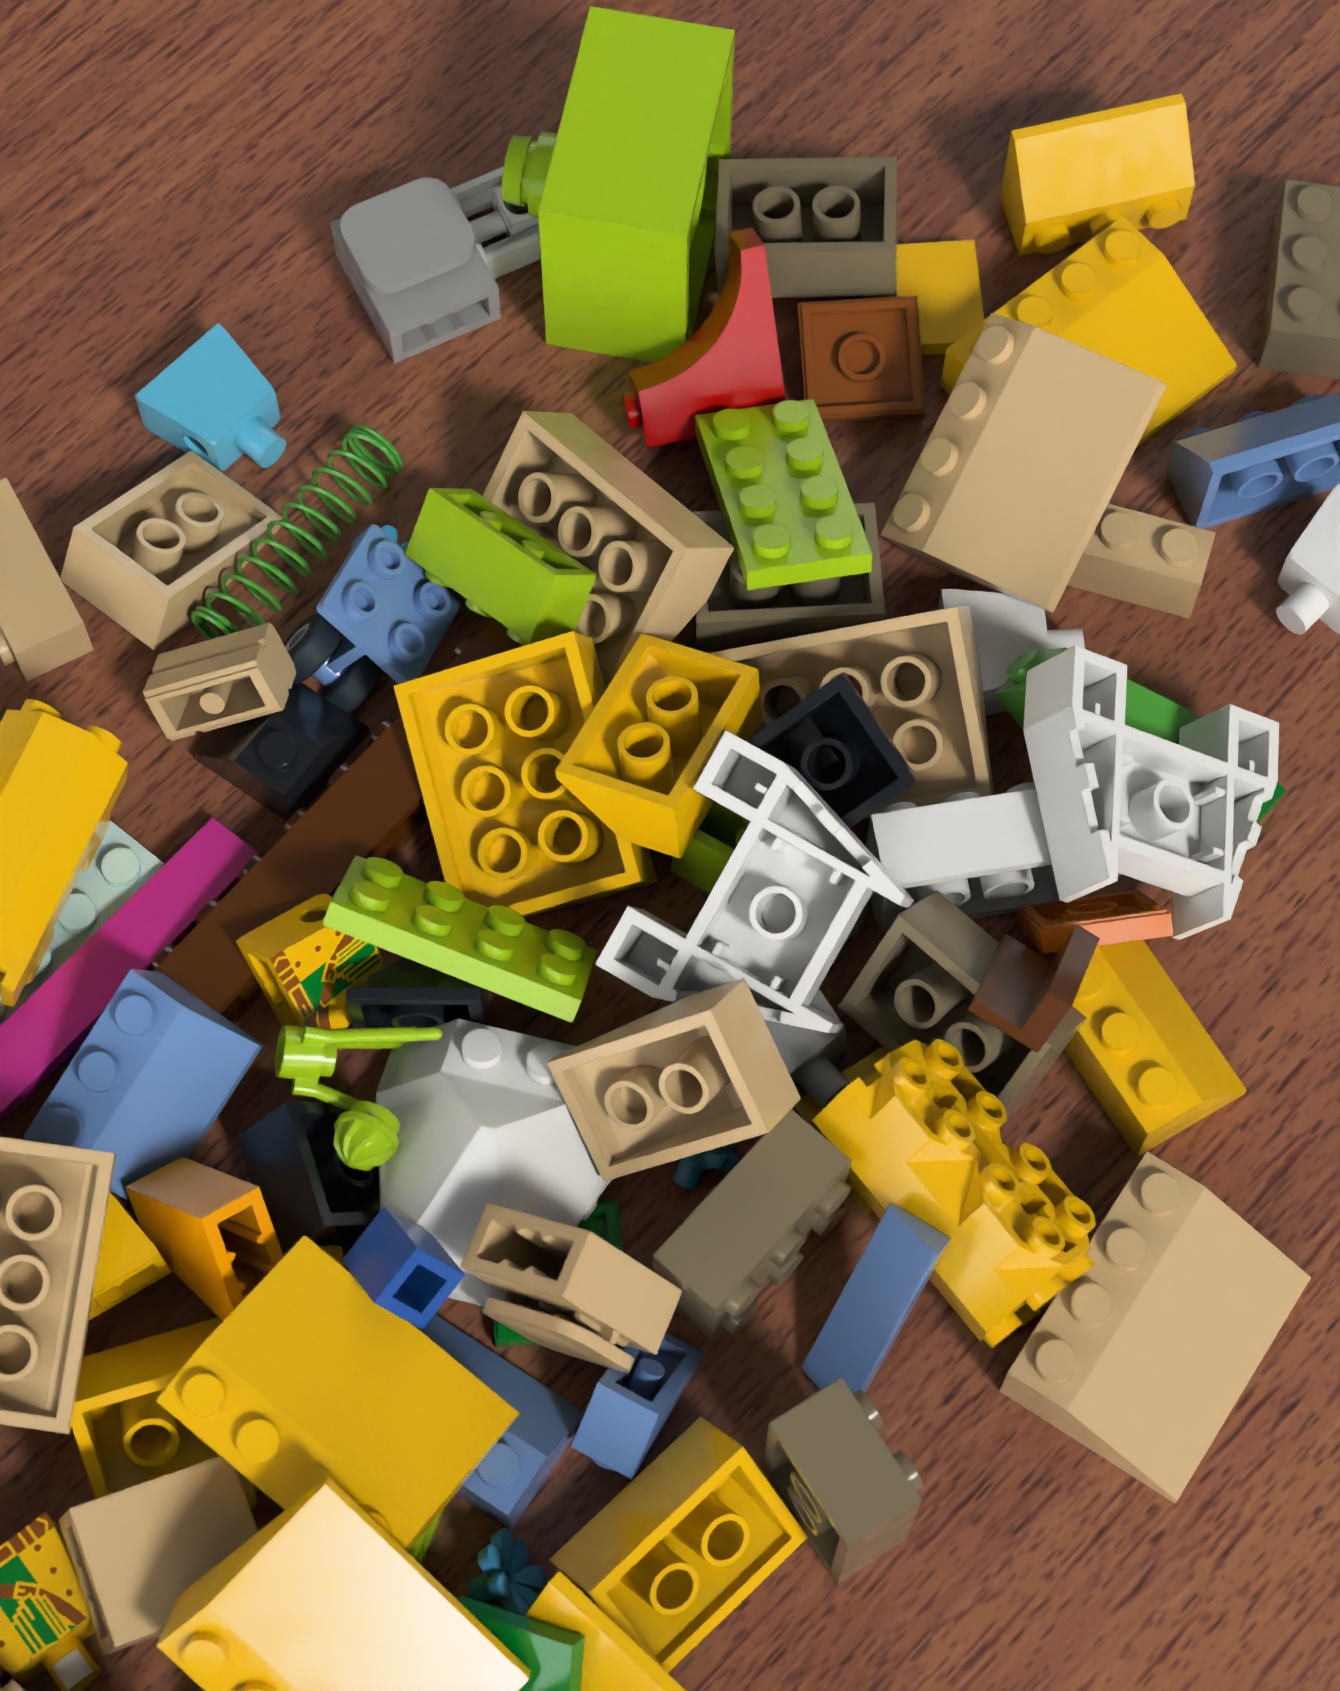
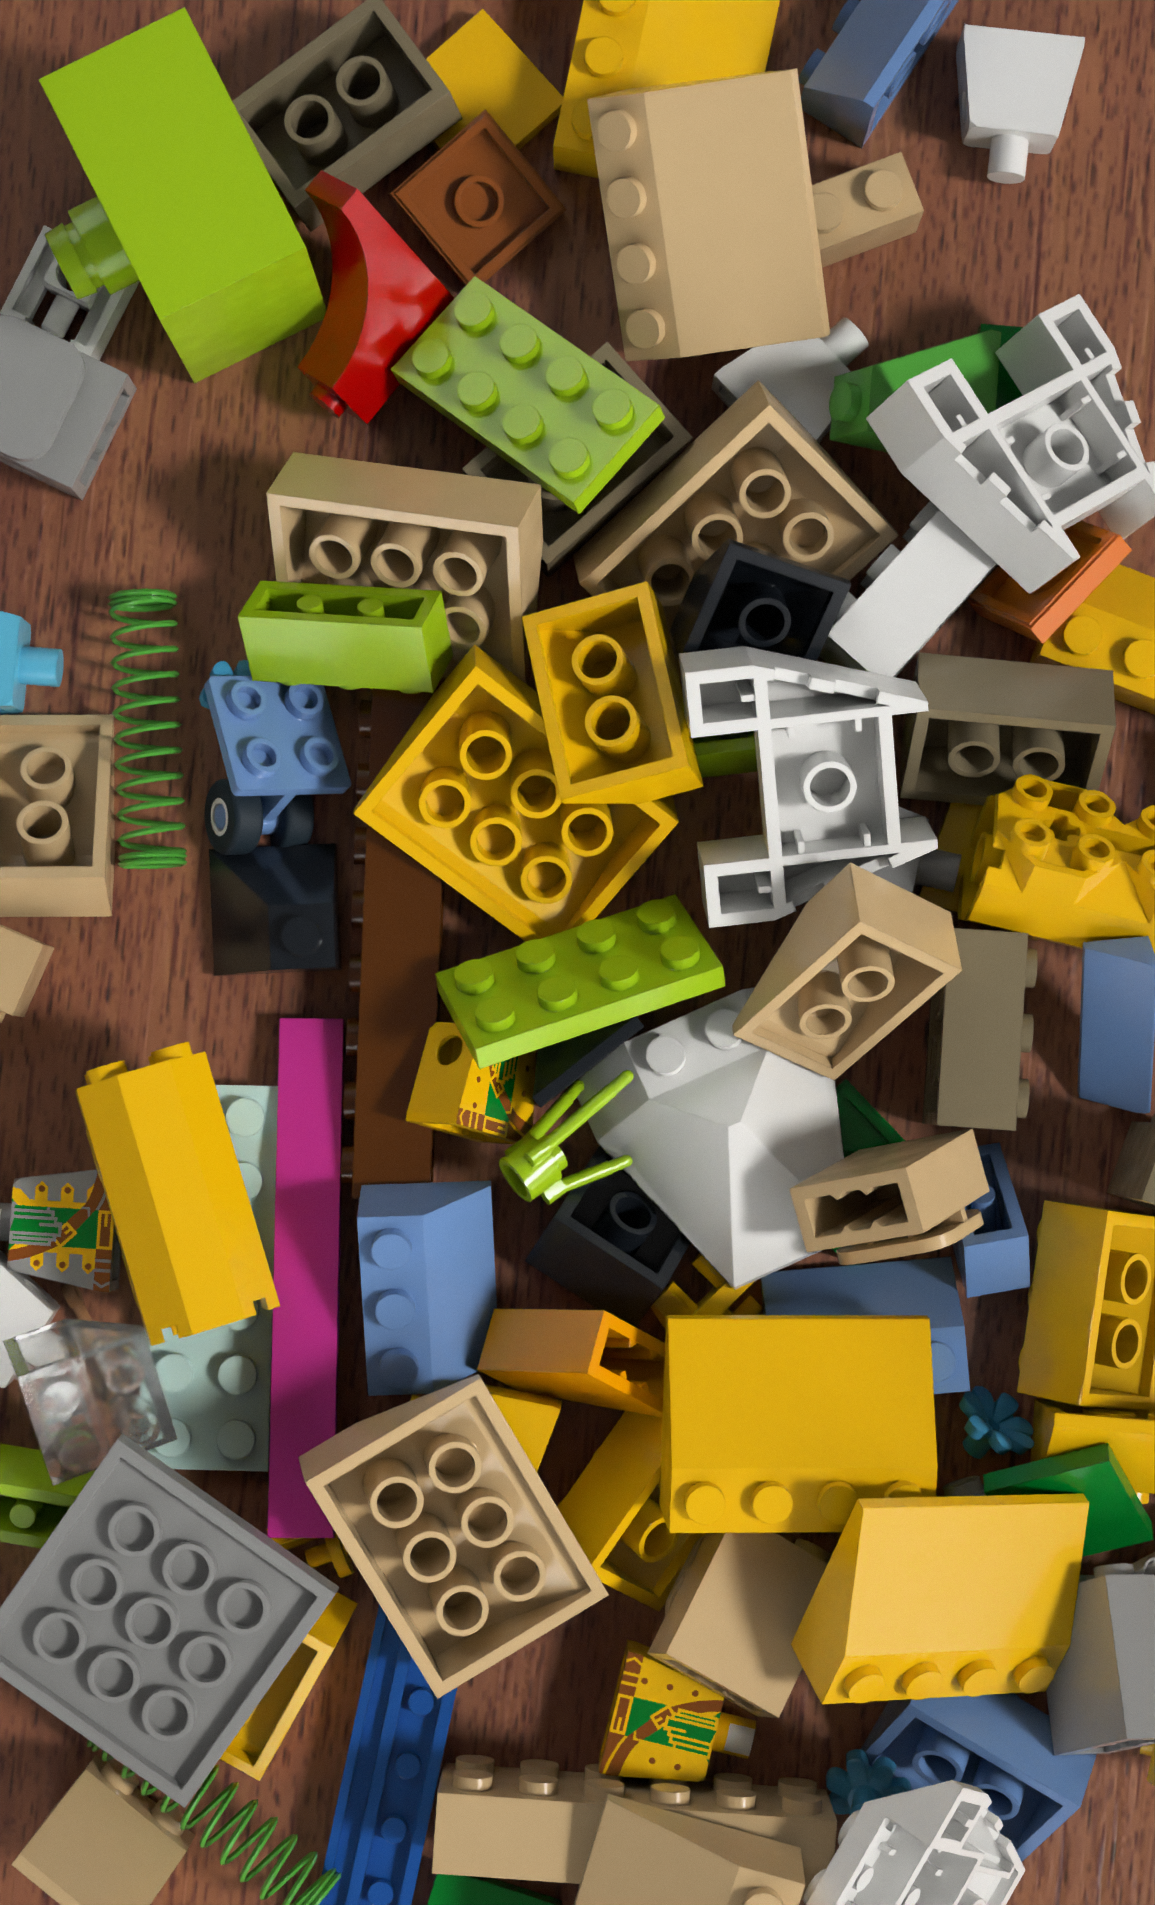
camera: 35 degrees left, 20 degrees up
(220, 682) = (198, 908): tan brick -> none
(366, 1135) = (632, 1193): lime plate -> none
(403, 1268) = (759, 1282): blue brick -> none
(1028, 992) = (1068, 687): reddish brown panel -> none

